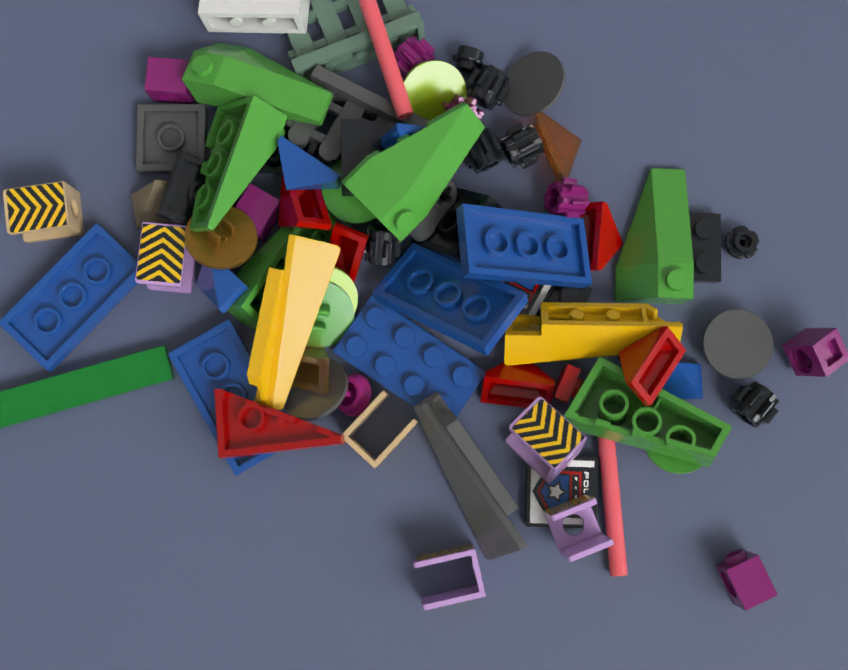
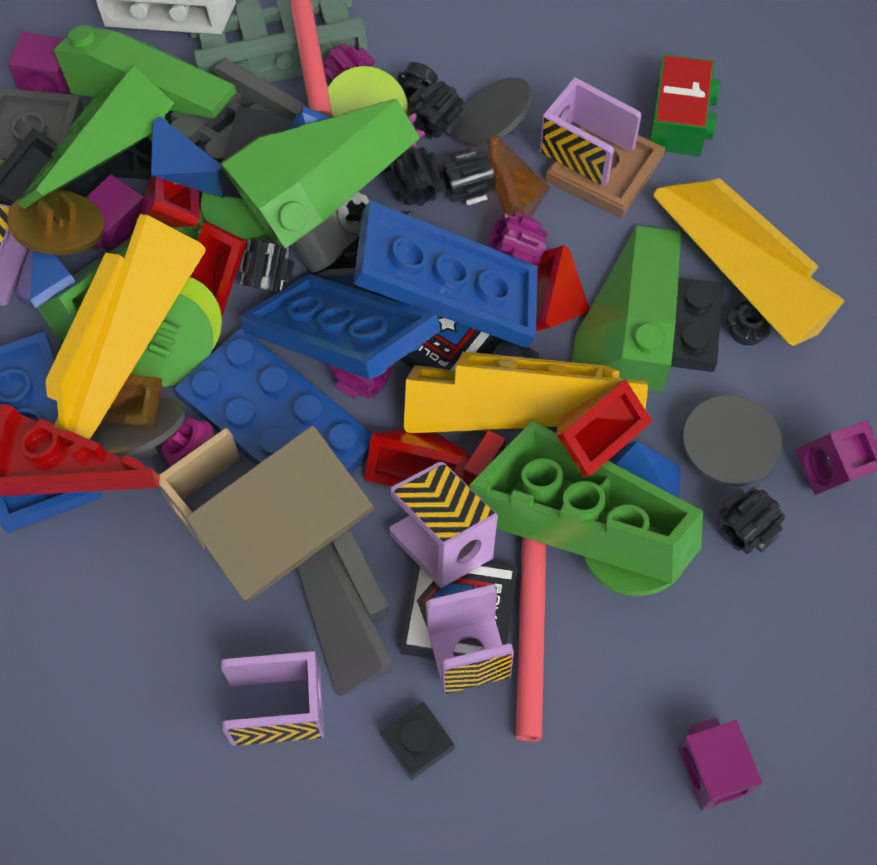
camera: 10 degrees right, 20 degrees down
(436, 457) = (280, 514): none -> dark tan tile
(546, 585) = (417, 740): none -> black plate
(619, 83) = (596, 113): none -> lavender piece
(622, 116) = (626, 180): none -> medium nougat tile
(678, 57) = (683, 104): none -> brick
(740, 190) = (753, 257): none -> yellow wedge

